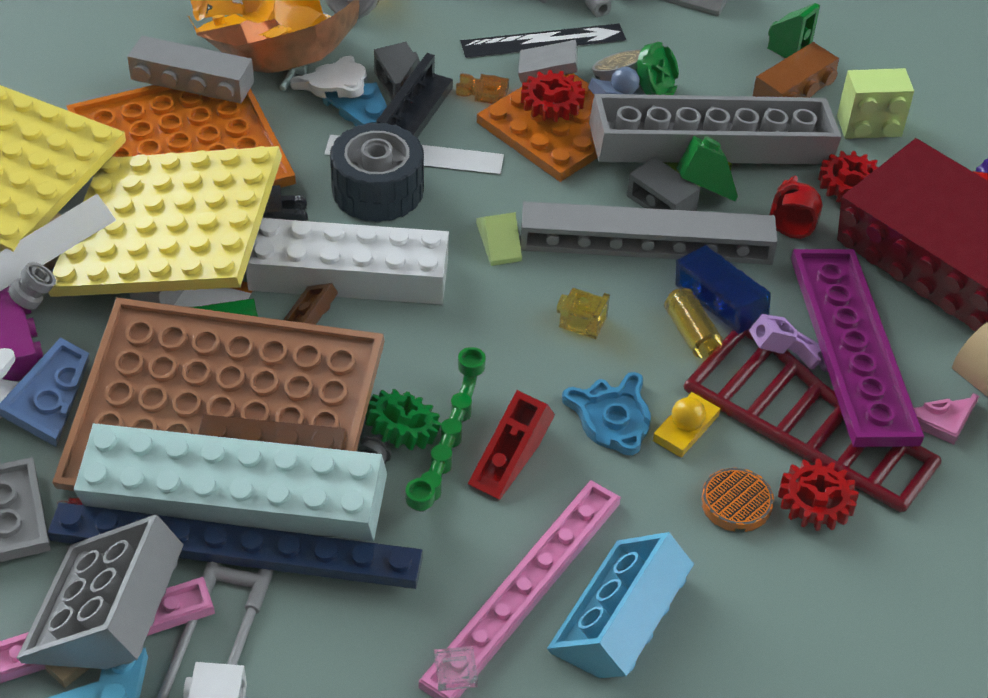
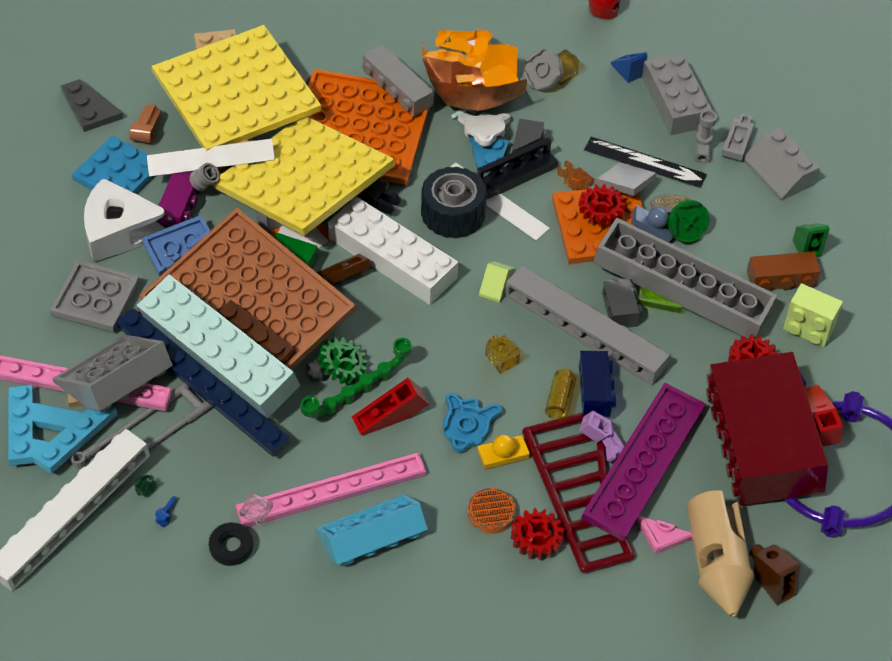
camera: 35 degrees right, 5 degrees up
(707, 167) = (656, 304): green slope -> none
(796, 208) = (691, 358): red helmet -> none

